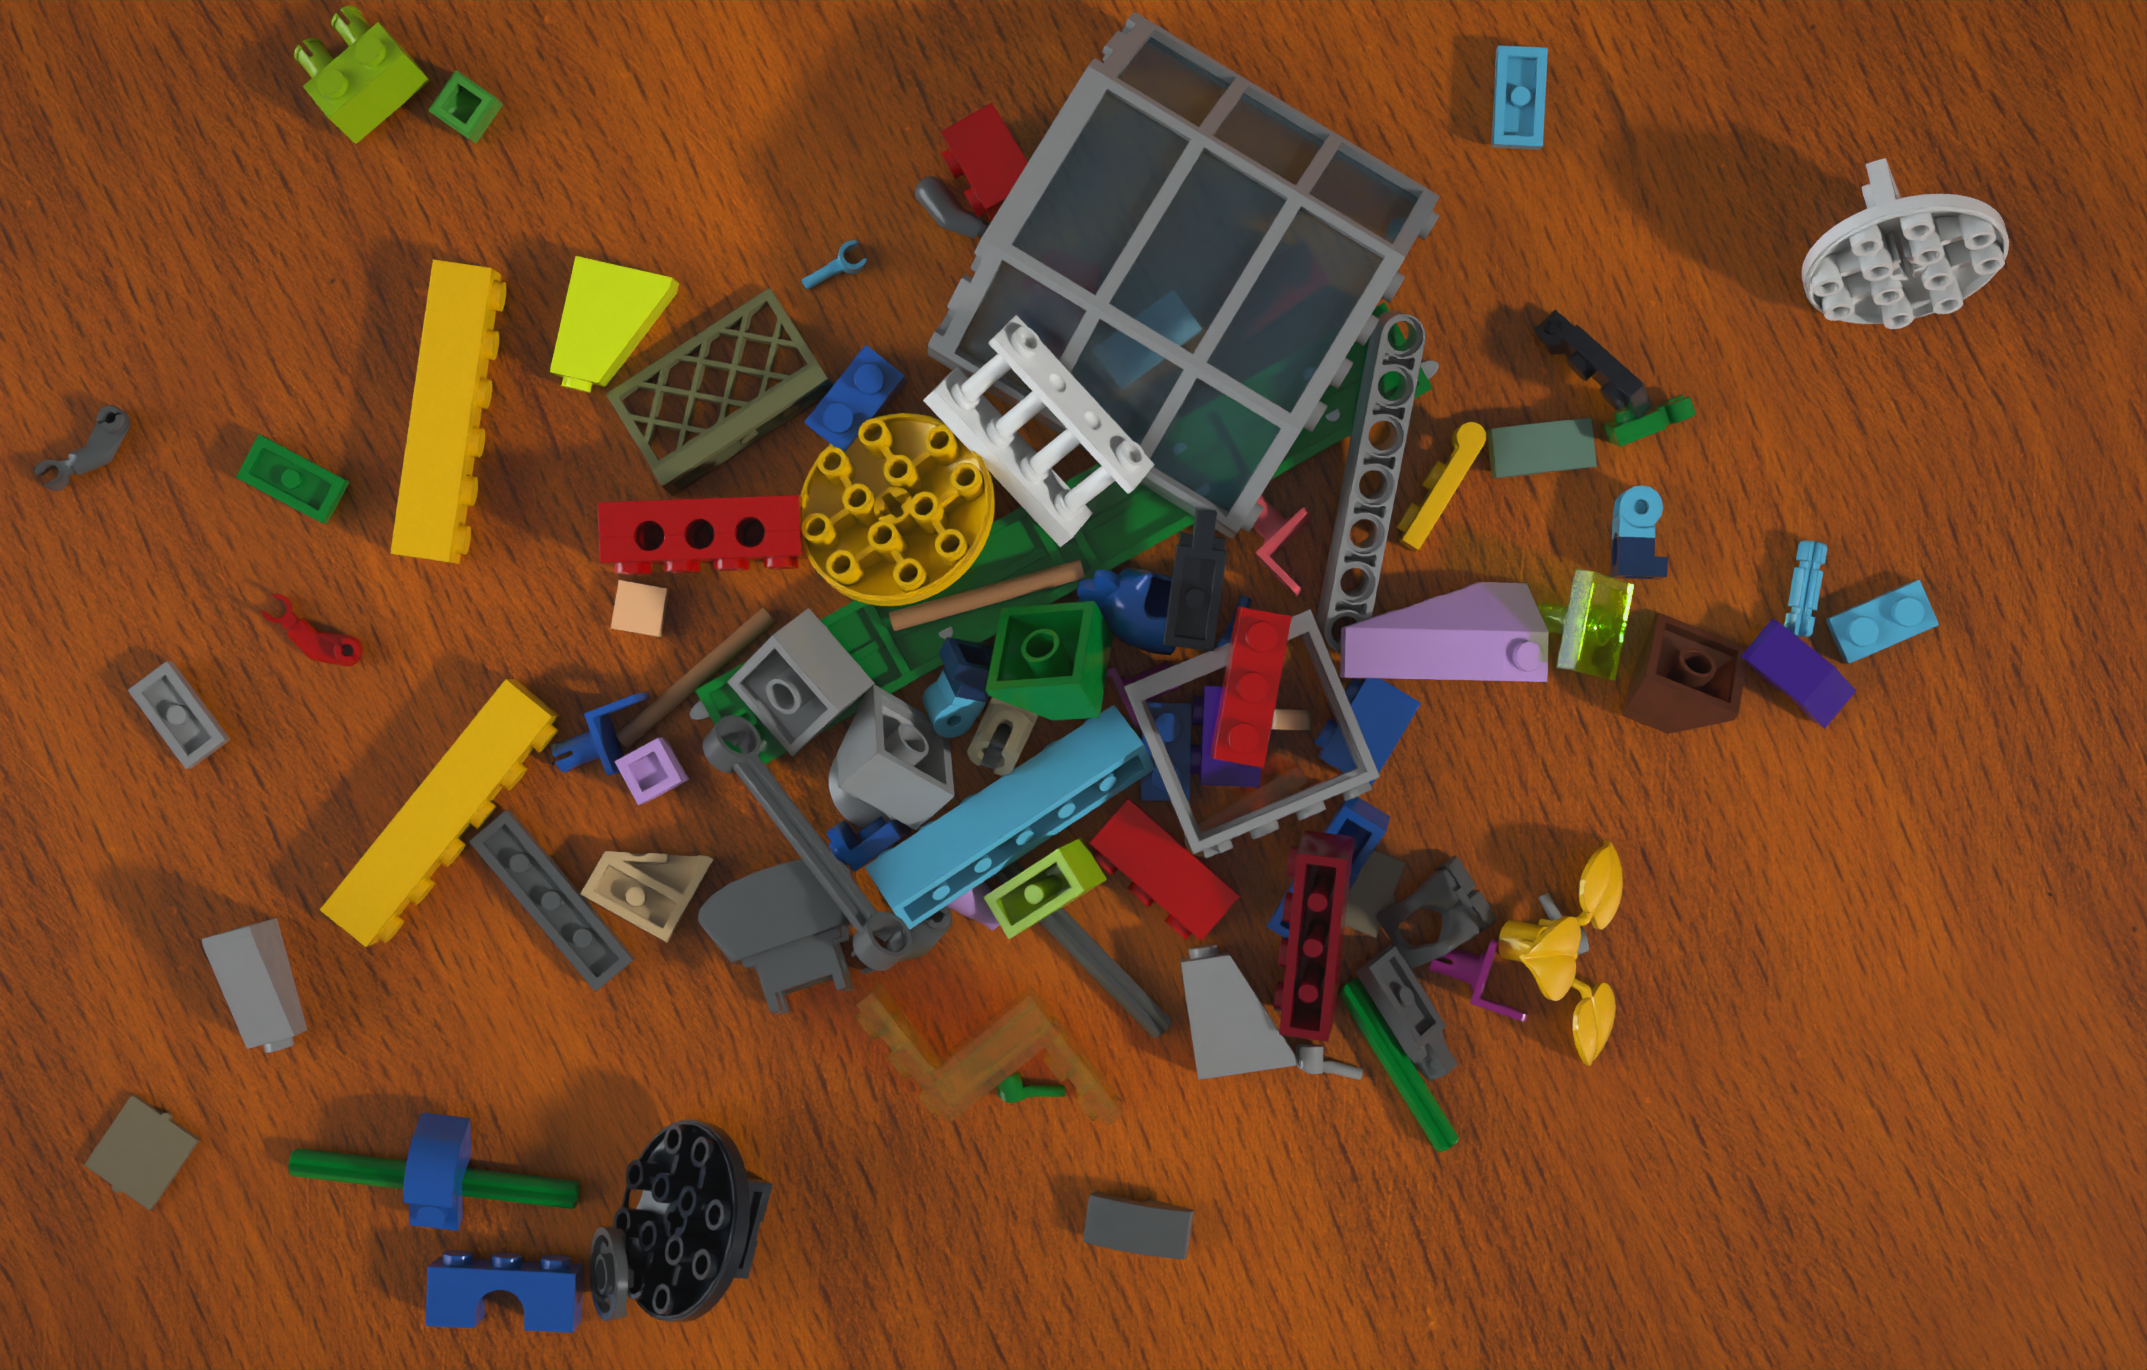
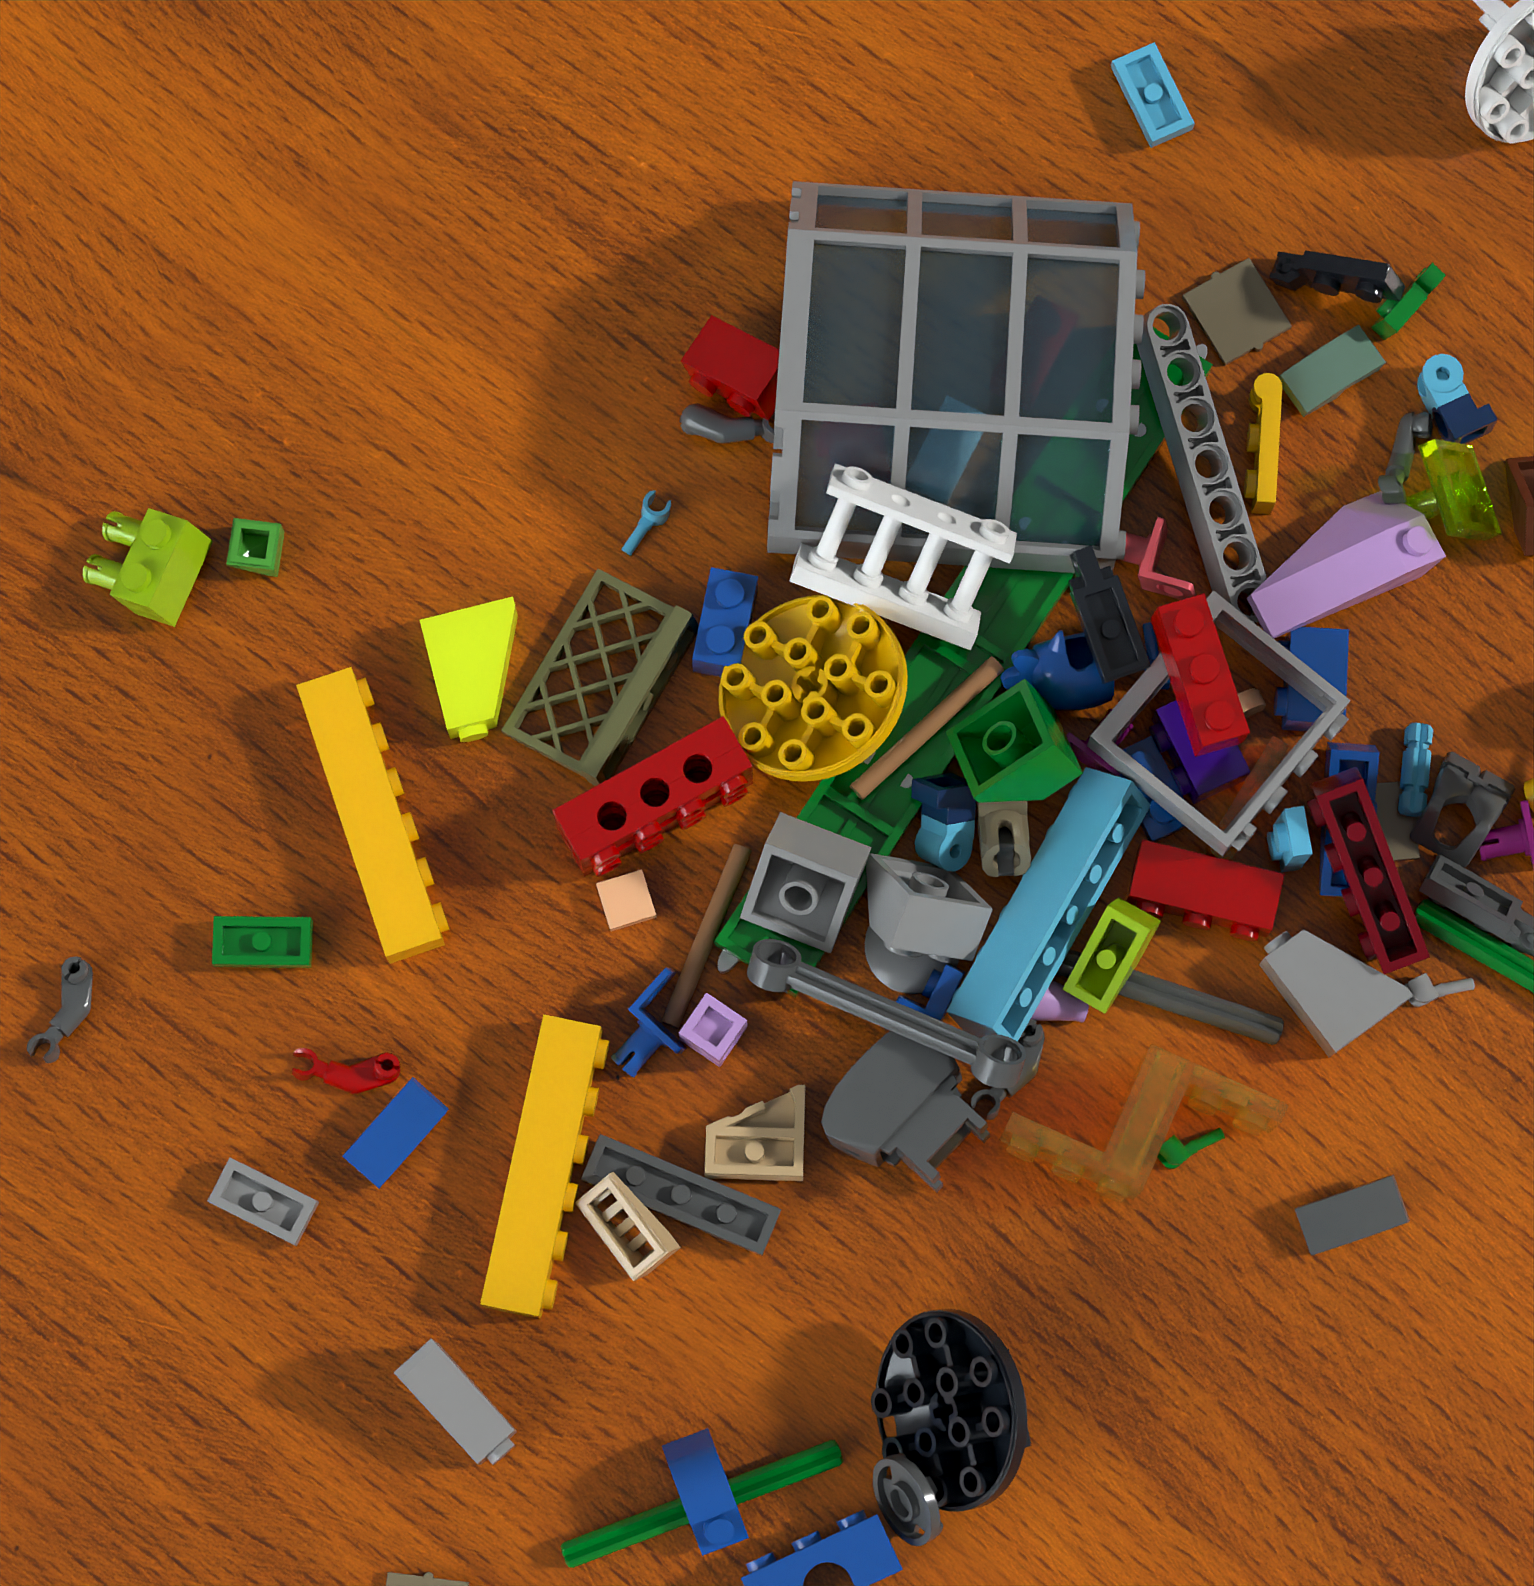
camera: 25 degrees left, 10 degrees down
(326, 714) = (395, 1132): none -> blue slope
(506, 916) = (651, 1229): none -> tan slope
(1261, 868) = (1290, 839): none -> medium azure plate
(1415, 857) = (1415, 769): none -> medium azure axle
(1486, 345) = (1236, 311): none -> dark tan piece
(1551, 574) = (1400, 462): none -> dark grey arm

